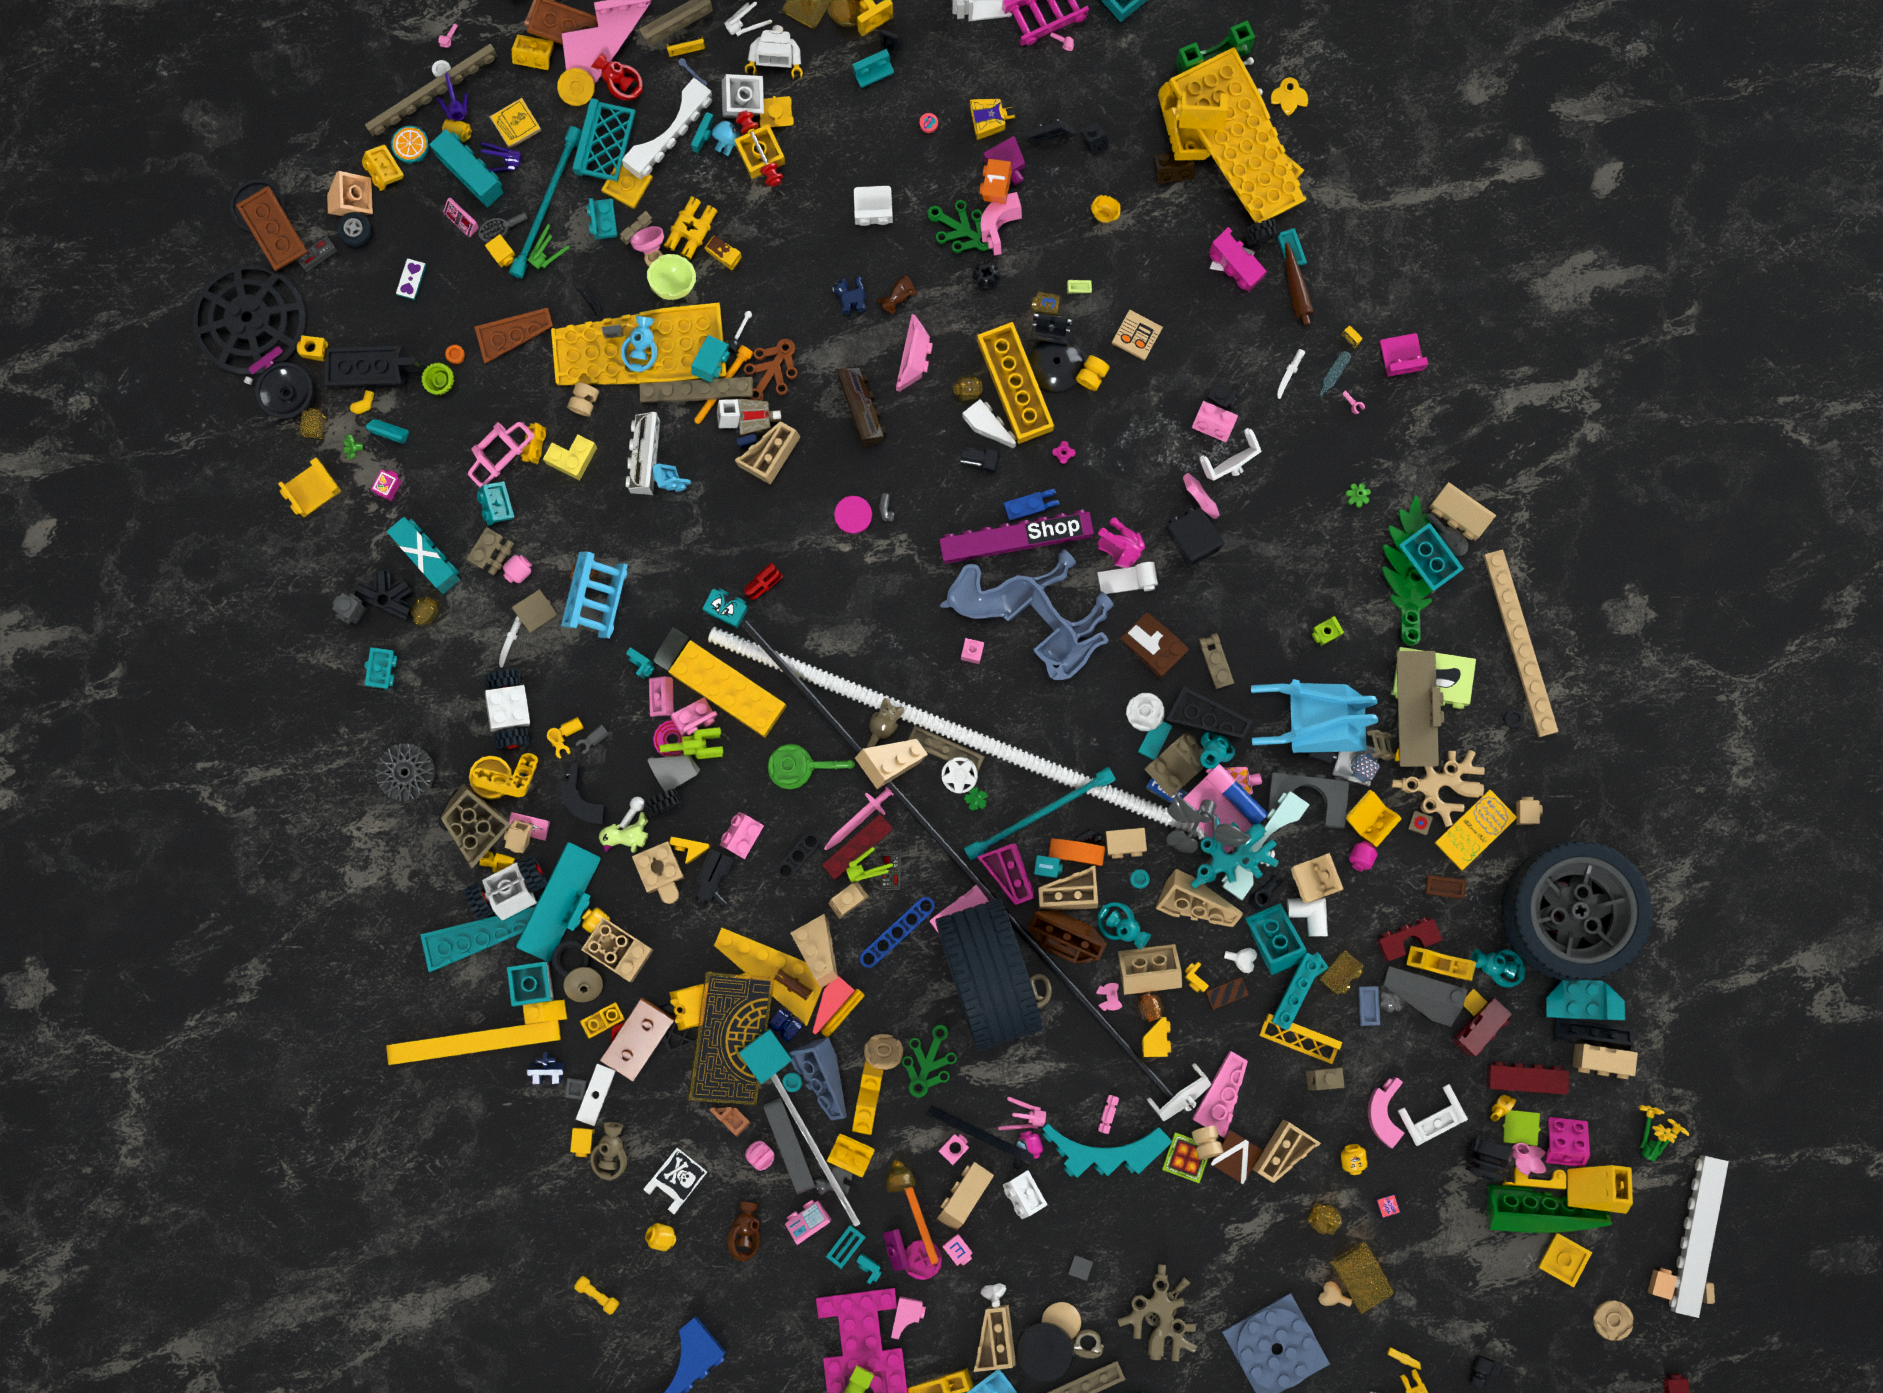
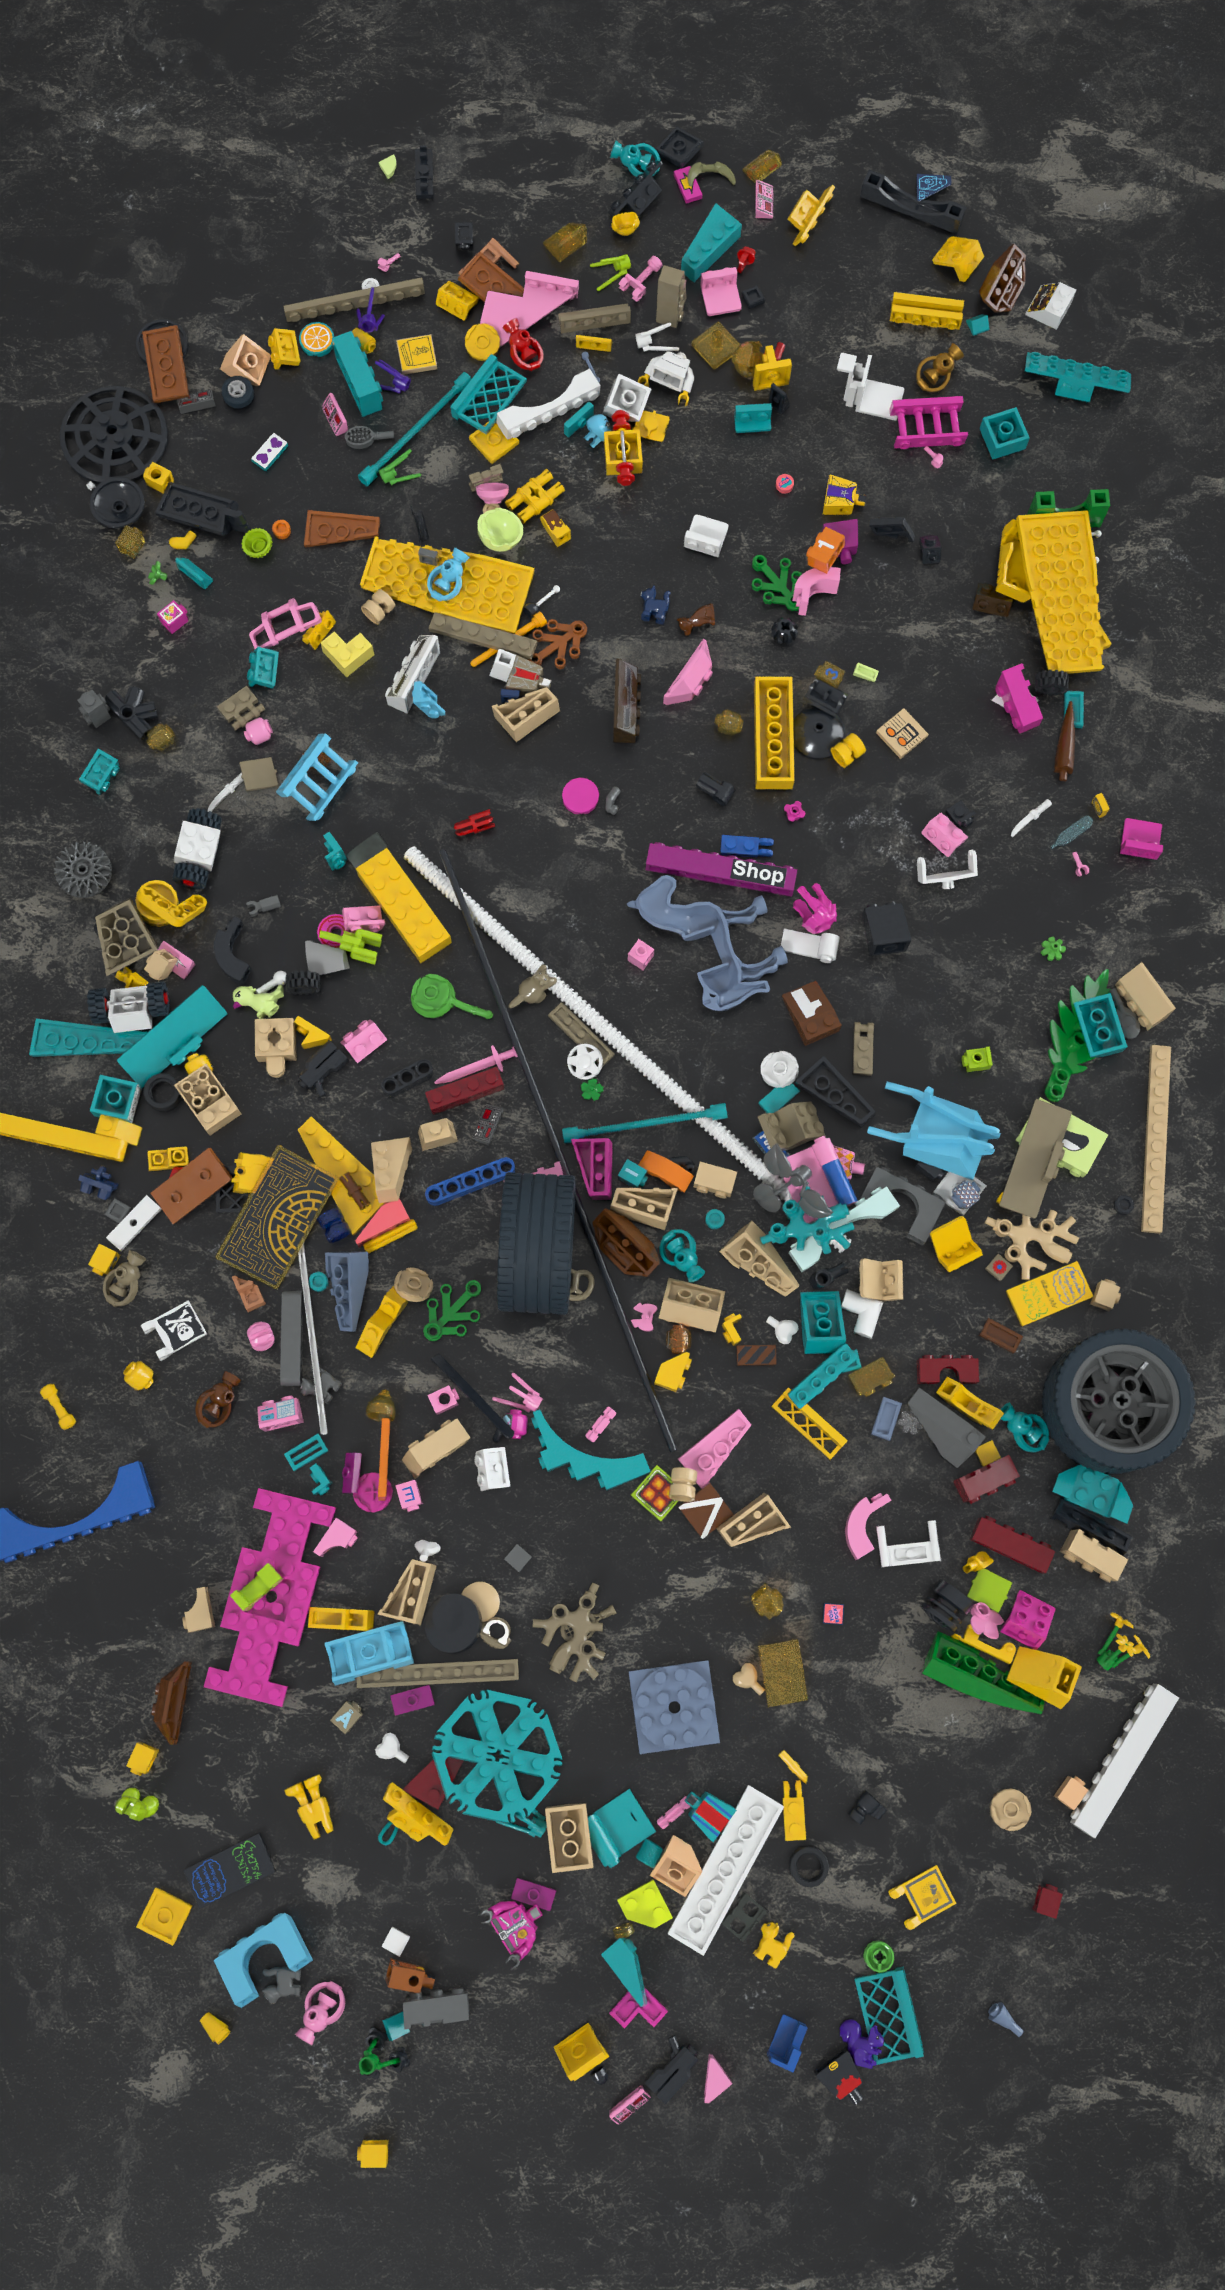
camera: 20 degrees right, 5 degrees down
(266, 361) = (112, 471): magenta plate -> none
(310, 489) = (104, 597): yellow panel -> none
(420, 551) = (180, 687): teal brick -> none
(500, 251) = (358, 455): yellow brick -> none
(556, 735) = (232, 889): yellow bar -> none
(583, 977) = (167, 1111): dark tan dish -> none
(602, 218) = (459, 461): teal bracket -> none
(661, 696) = (341, 891): bright pink slope -> none
(710, 358) = (505, 610): teal brick -> none
(725, 608) = (431, 834): teal brick -> none
(764, 1056) = (302, 1246): teal tile -> none
(850, 1155) = (345, 1368): yellow bracket -> none
(857, 872) = (453, 1110): lime plant -> none
(890, 760) = (525, 1022): tan wedge -> none
(985, 423) = (732, 759): white slope -> none
(1105, 208) = (916, 612): yellow hair -> none
(1184, 1097) = (677, 1435): white piece -> none
(1200, 495) = (906, 896): bright pink tile -> none
(1202, 116) = (1035, 555): yellow panel -> none
(1215, 749) = (831, 1125): teal piece -> none
(1289, 98) = (1121, 577): yellow plate -> none
(1325, 1079) = (819, 1469): dark tan torso -> none
(1354, 1159) = (817, 1556): yellow head -> none
(1363, 856) = (933, 1276): dark pink head -> none
(1382, 752) = (987, 1186): dark tan piece -> none
(1564, 1259) = (984, 1731): yellow plate -> none
(1708, 1296) = (1113, 1819): tan tile -> none

